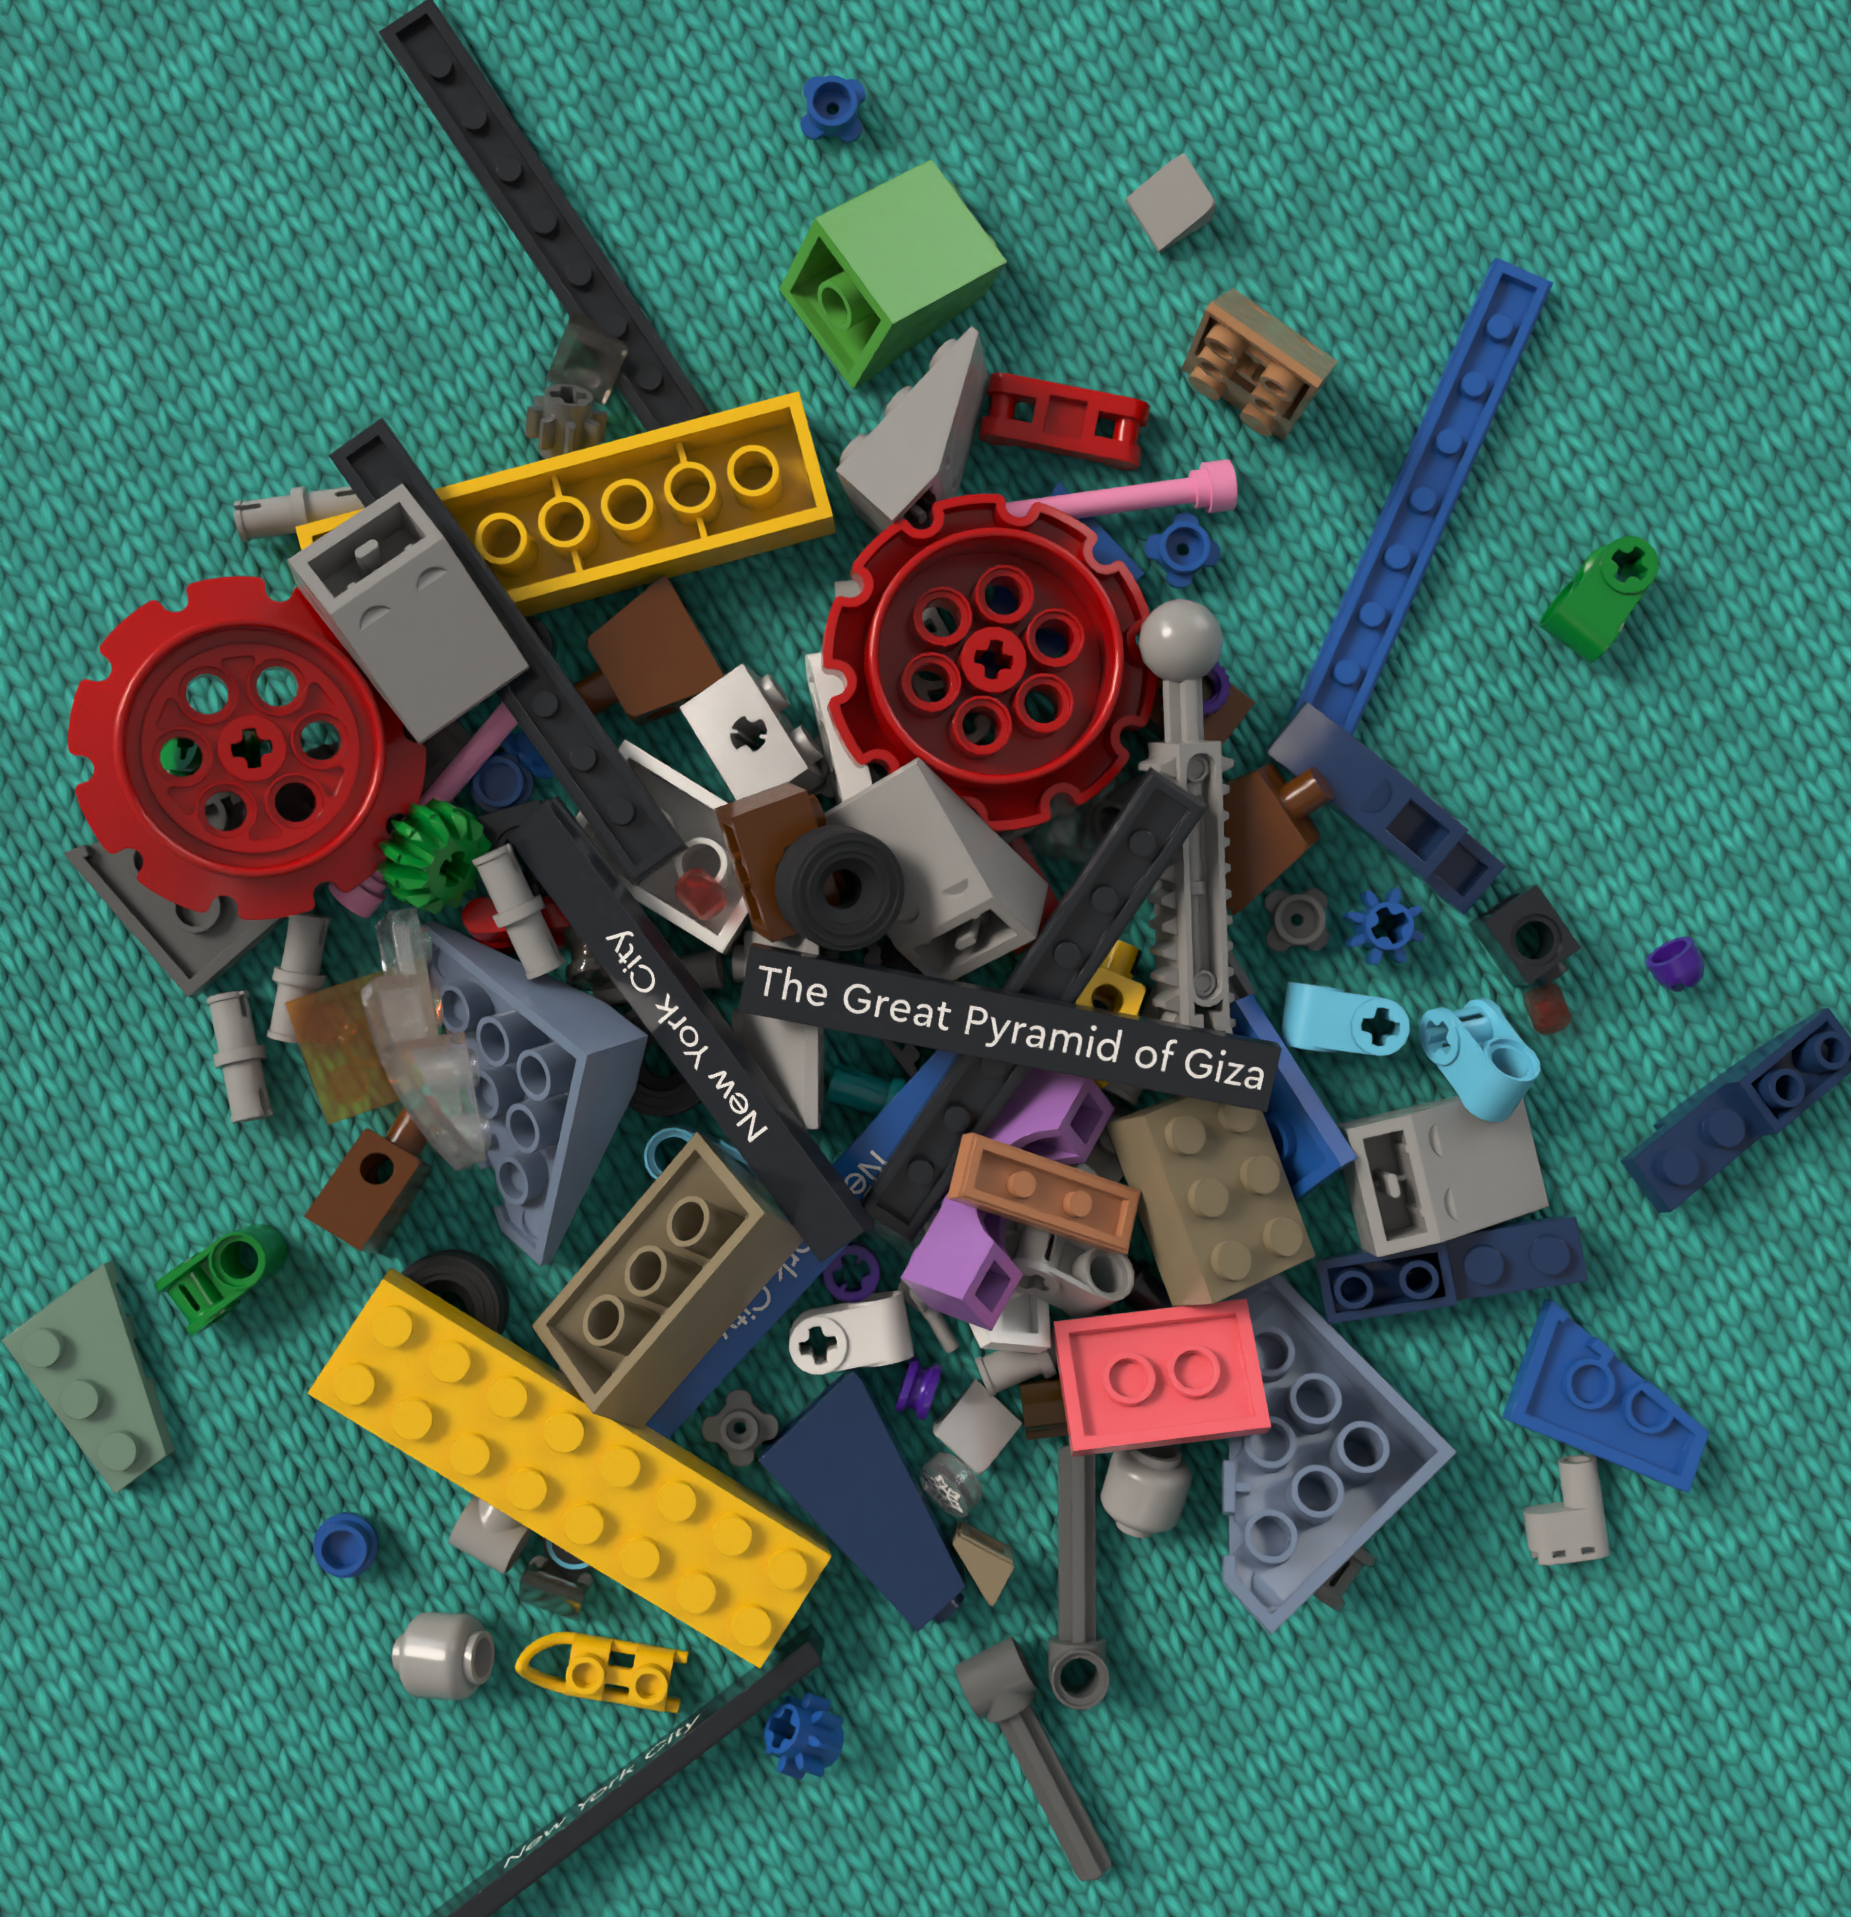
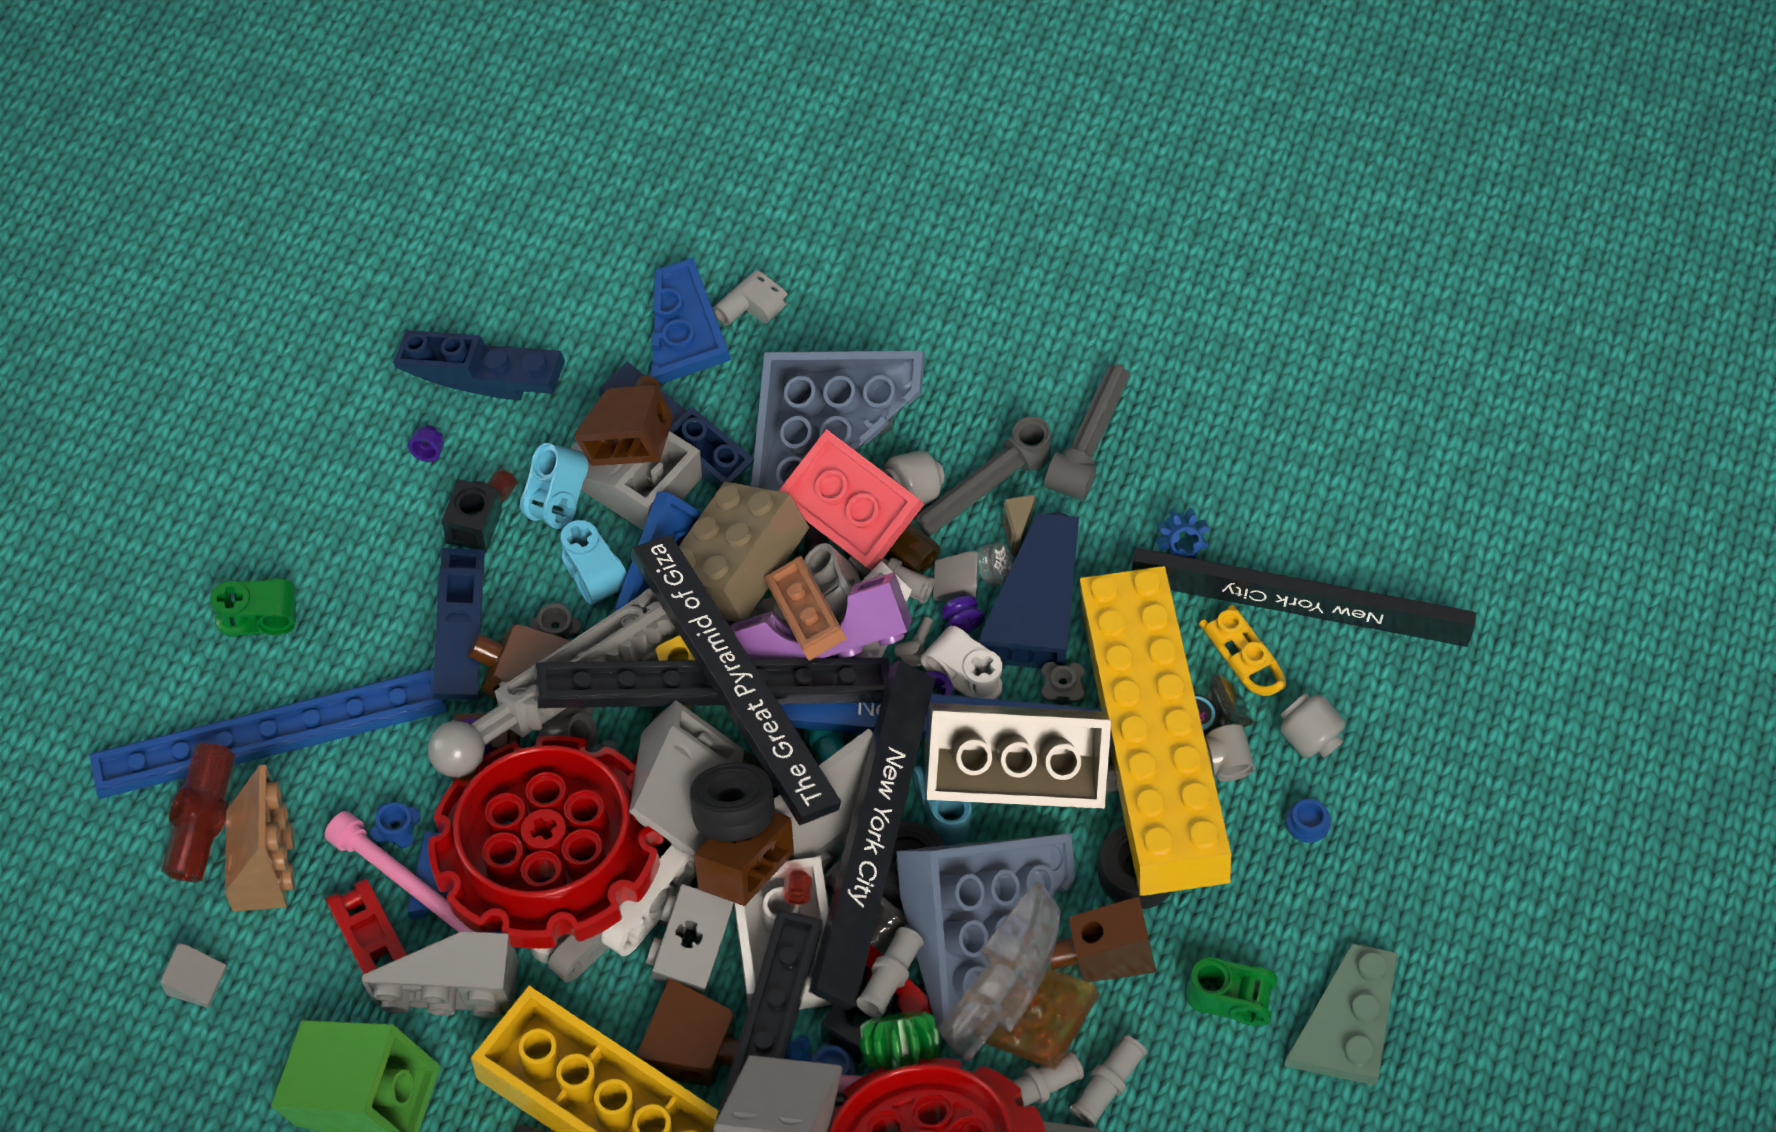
camera: 130 degrees left, 30 degrees down
(1368, 340) = (198, 813): none -> clear red piece
(1398, 934) = (524, 580): blue gear -> none
(1483, 1200) = (626, 425): none -> reddish brown torso

